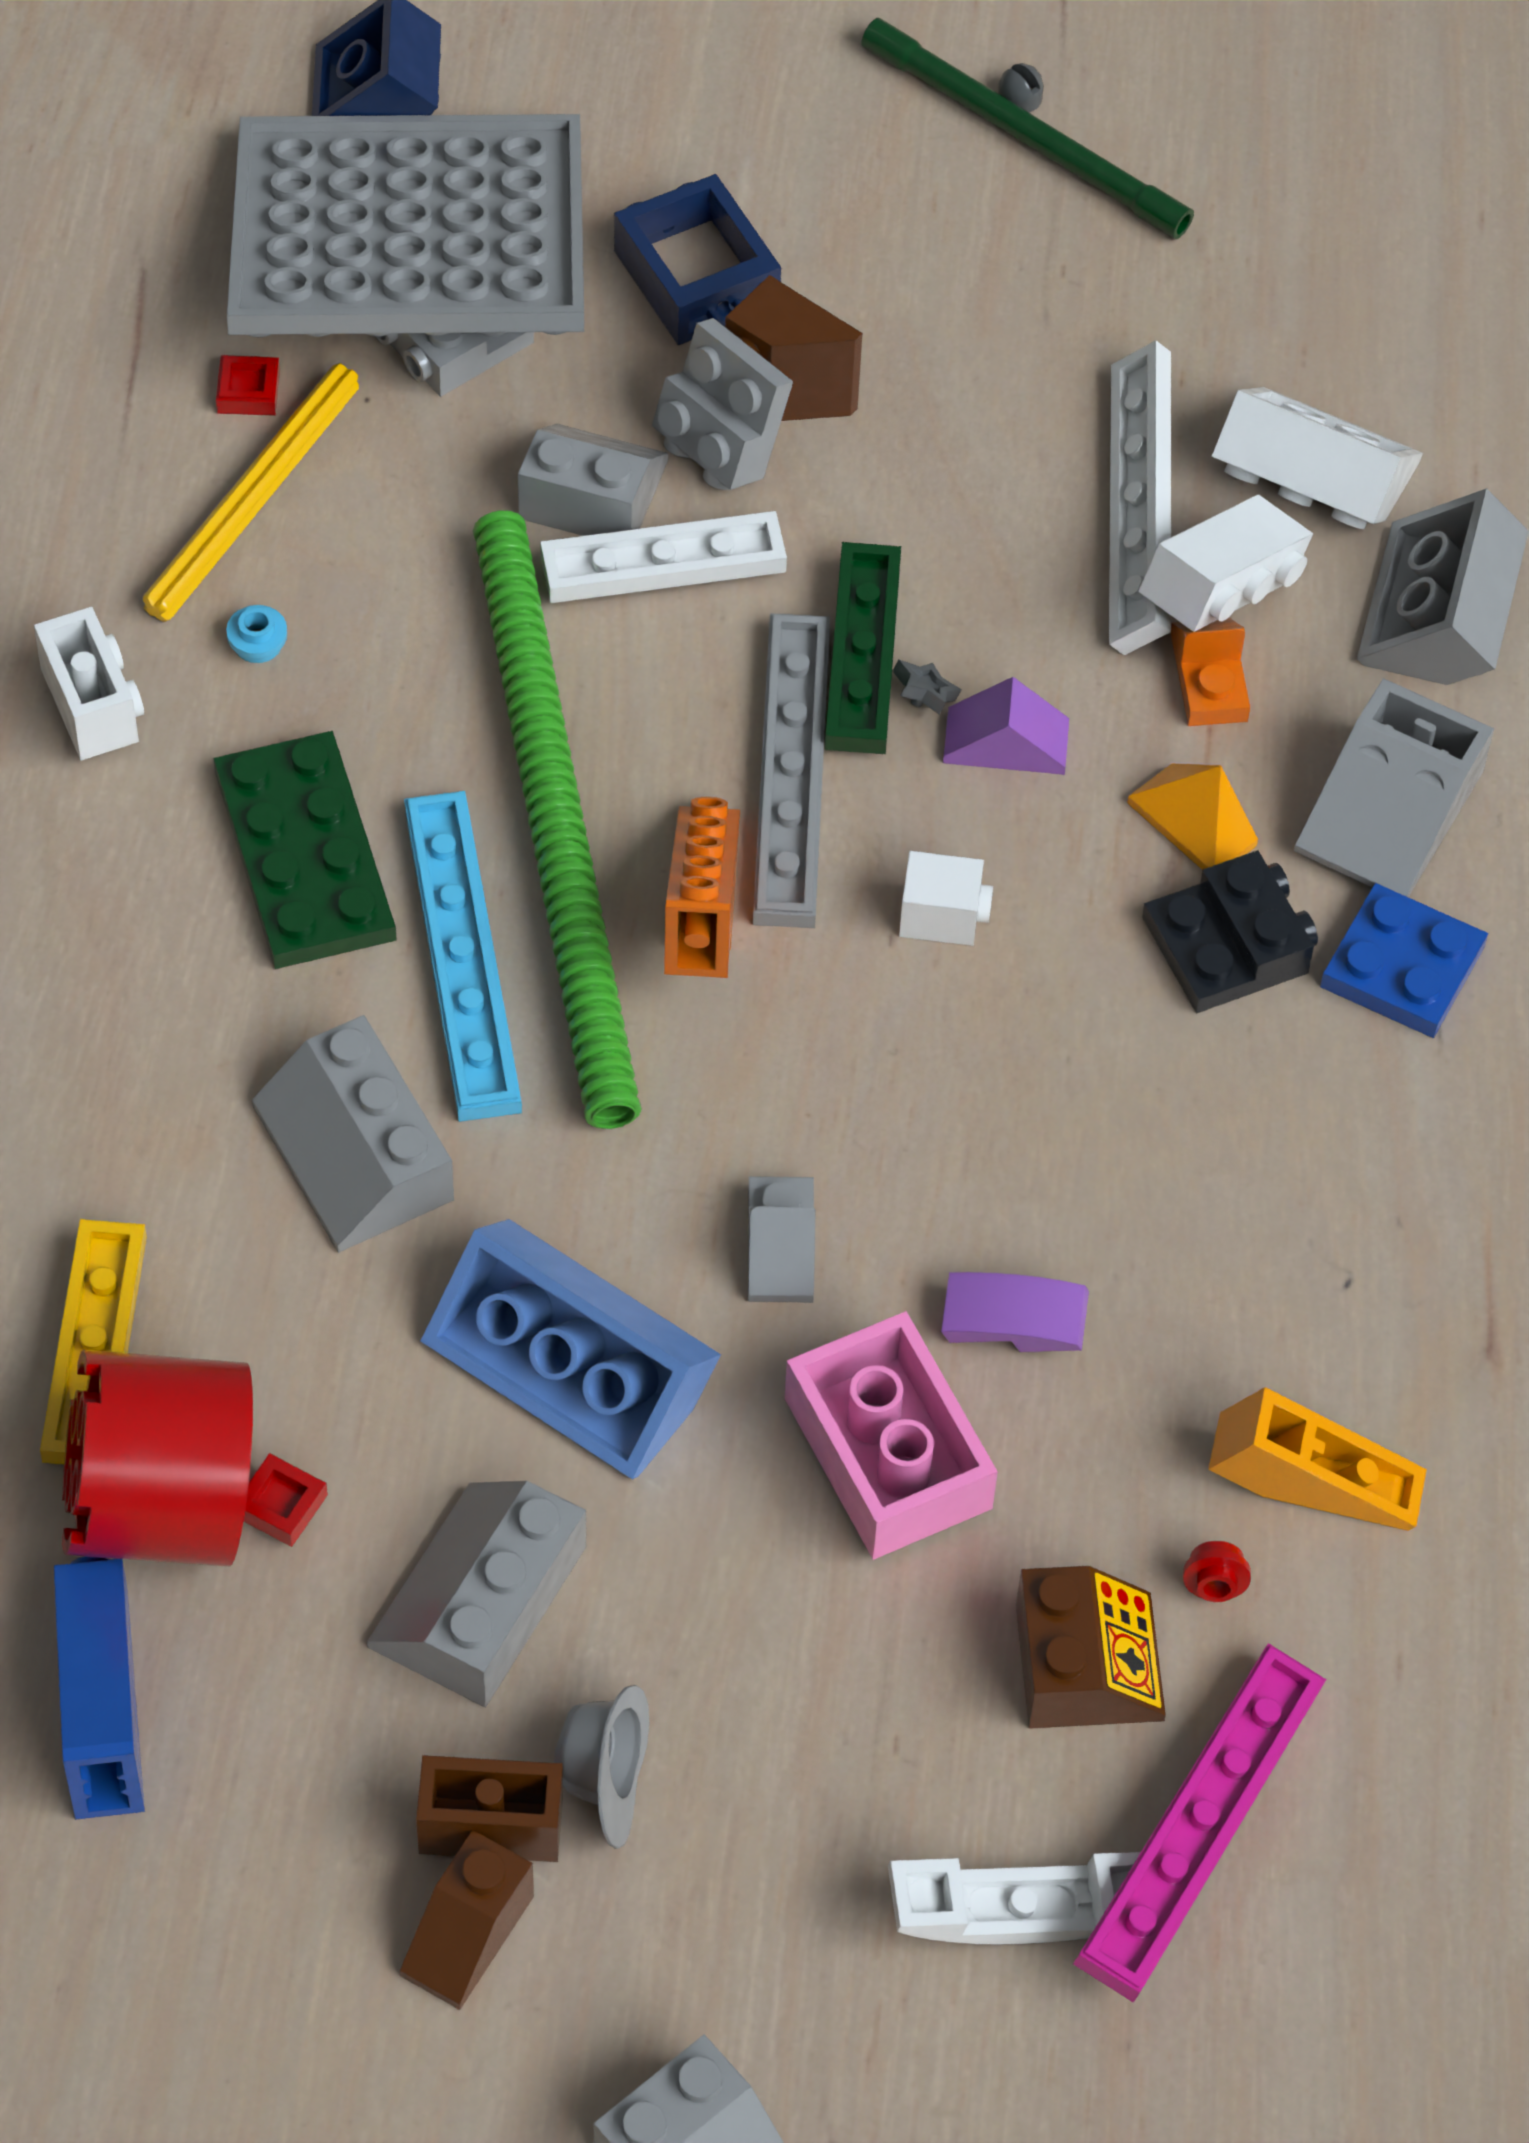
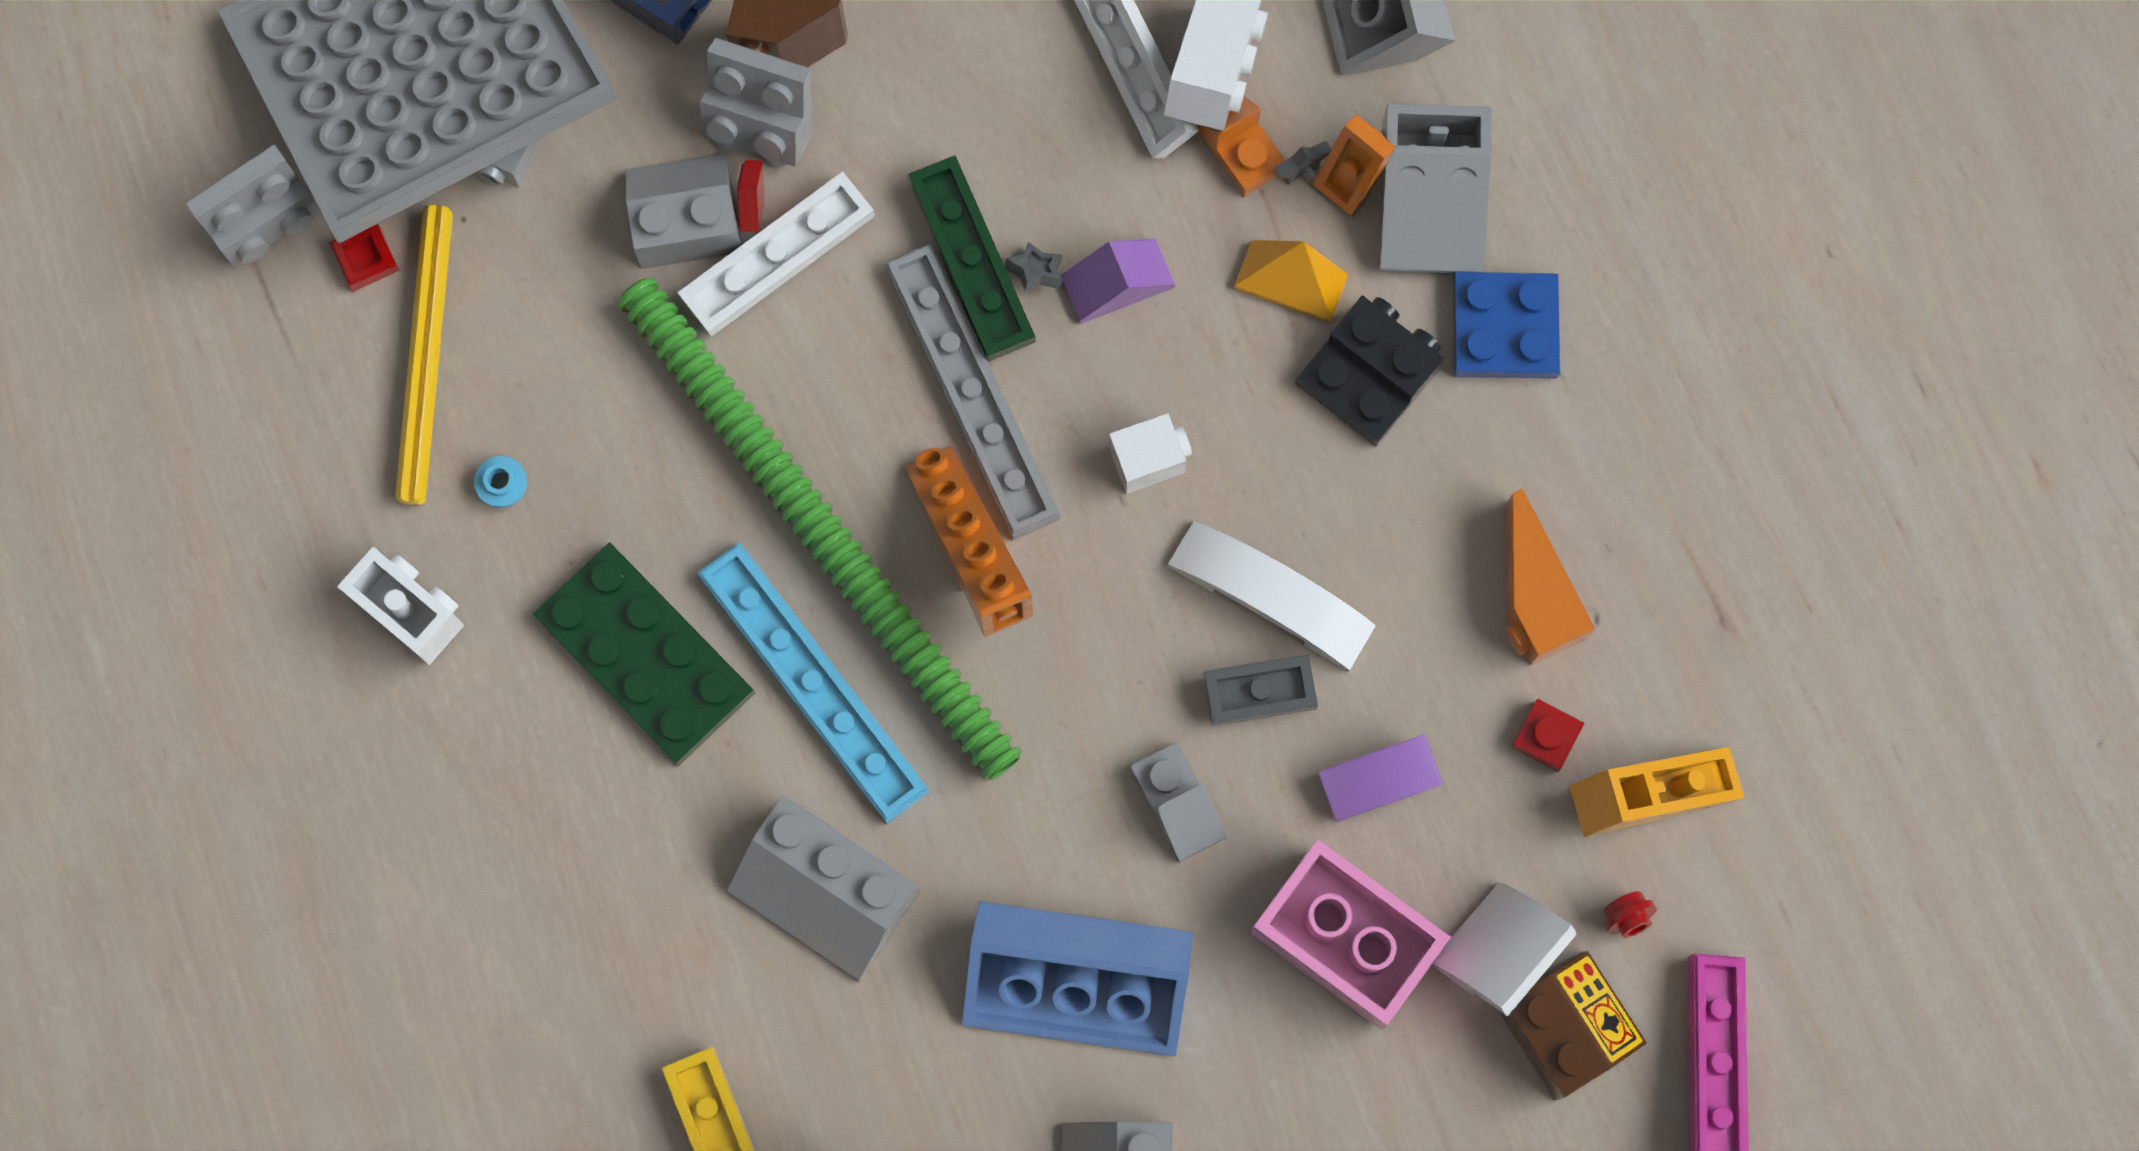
camera: 25 degrees left, 20 degrees up
(166, 278) = (254, 207): none -> light grey plate
(667, 489) = (750, 196): none -> red tile
(932, 1171) = (1260, 690): none -> dark grey plate
(1007, 1091) = (1273, 592): none -> white slope
(1055, 1528) = (1504, 947): none -> white slope
(1226, 1363) = (1547, 735): none -> red plate
(1266, 711) = (1303, 163): none -> dark grey piece
(1291, 1220) = (1540, 598): none -> orange slope
(1316, 726) = (1354, 165): none -> orange plate

